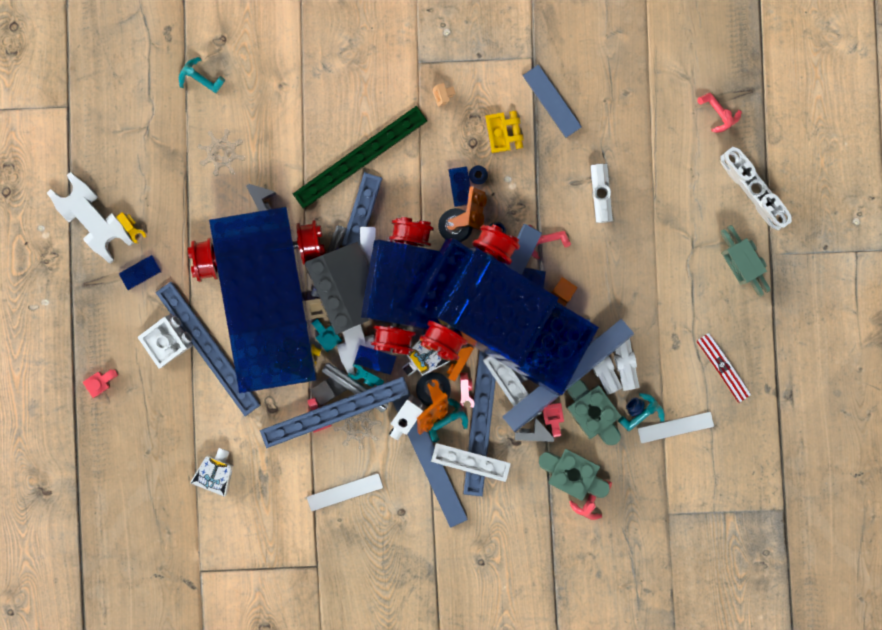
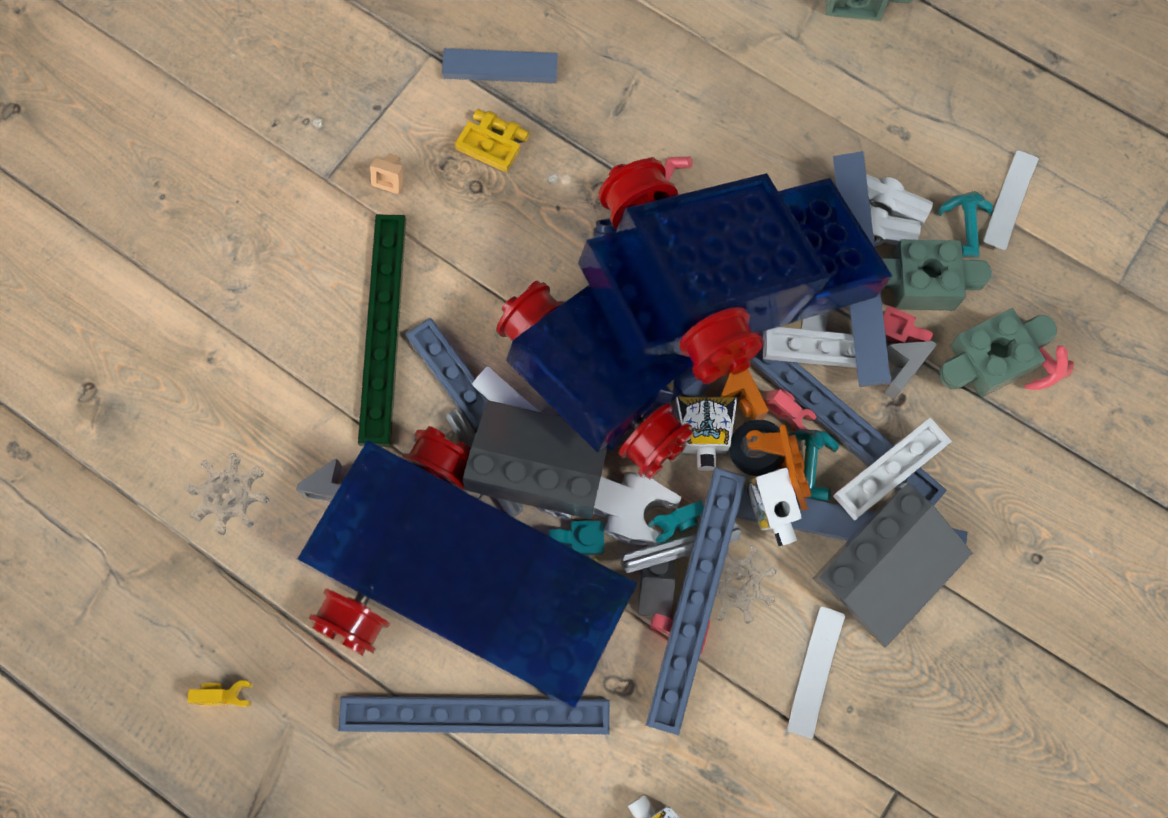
camera: 55 degrees left, 15 degrees down
(80, 206) = (129, 745): white piece -> none
(140, 272) = (293, 732): clear blue plate -> none
(165, 340) = (416, 767): white plate -> none
(189, 71) = (84, 454): teal piece -> none
(315, 309) = (537, 518): tan plate -> none
(375, 359) = (664, 490): clear blue plate -> none
(421, 494) = (894, 563): none -> dark grey piece
(459, 185) = (518, 233): clear blue plate -> none
(459, 223) = (559, 262): plate -> none
(478, 181) = (524, 211): dark blue plate -> none
(602, 206) = (641, 76): white piece -> none
(635, 406) = (954, 224): dark blue plate -> none
(724, 367) = (970, 99): sticker -> none

